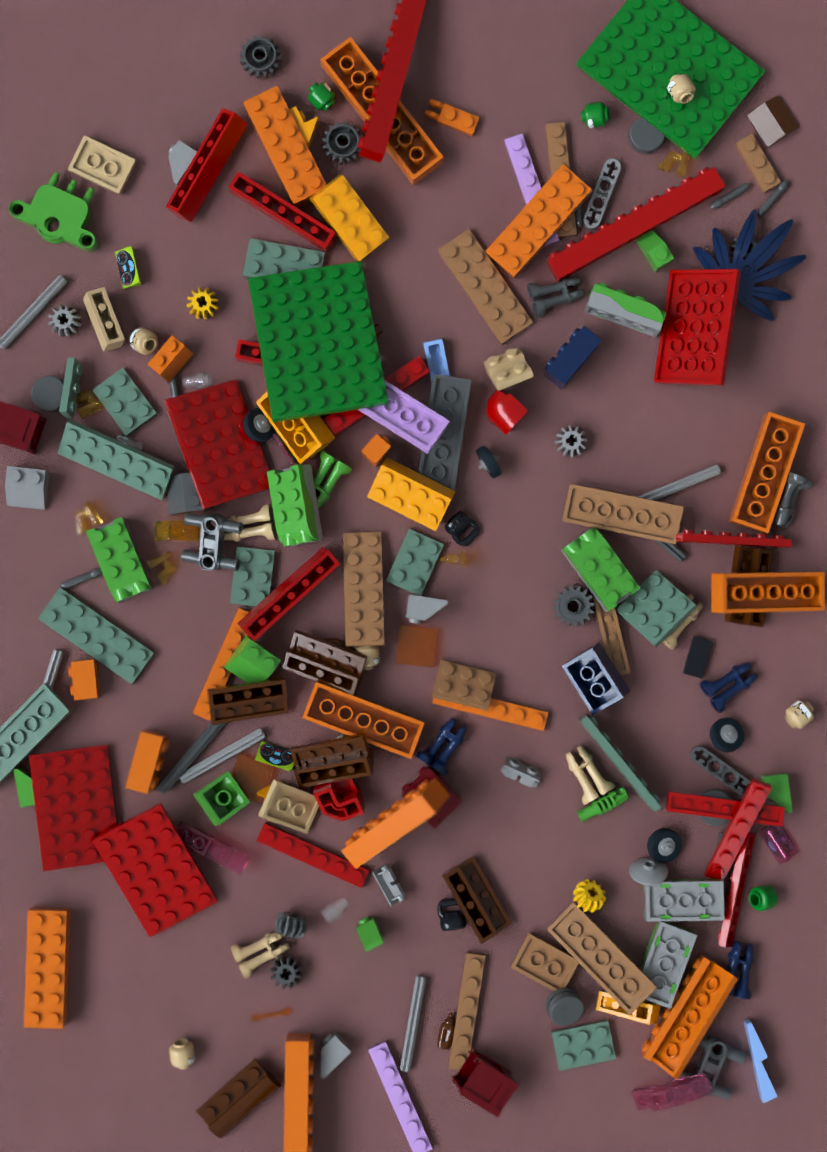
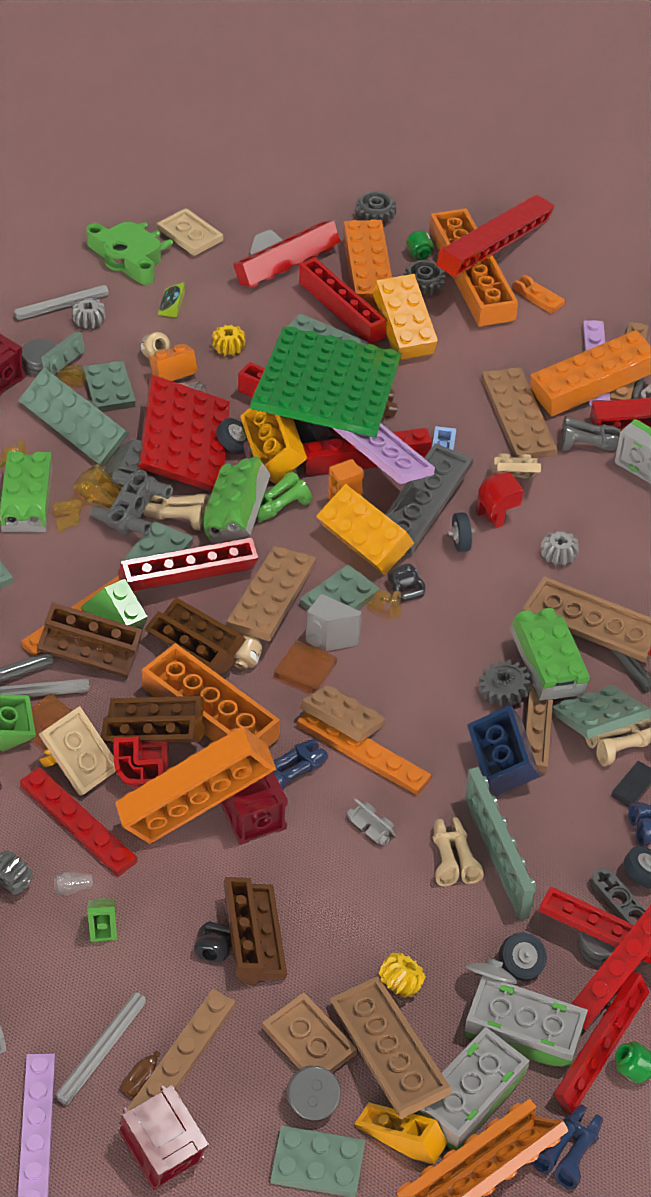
camera: 20 degrees right, 40 degrees down
(103, 319) = (126, 319): tan brick -> none
(275, 756) = (92, 710): slope -> none
(308, 128) = (398, 259): light orange slope -> none
(386, 881) = (153, 880): light grey hinge -> none
(571, 356) = (588, 478): dark blue brick -> none
(601, 805) = (460, 888): bright green hinge -> none

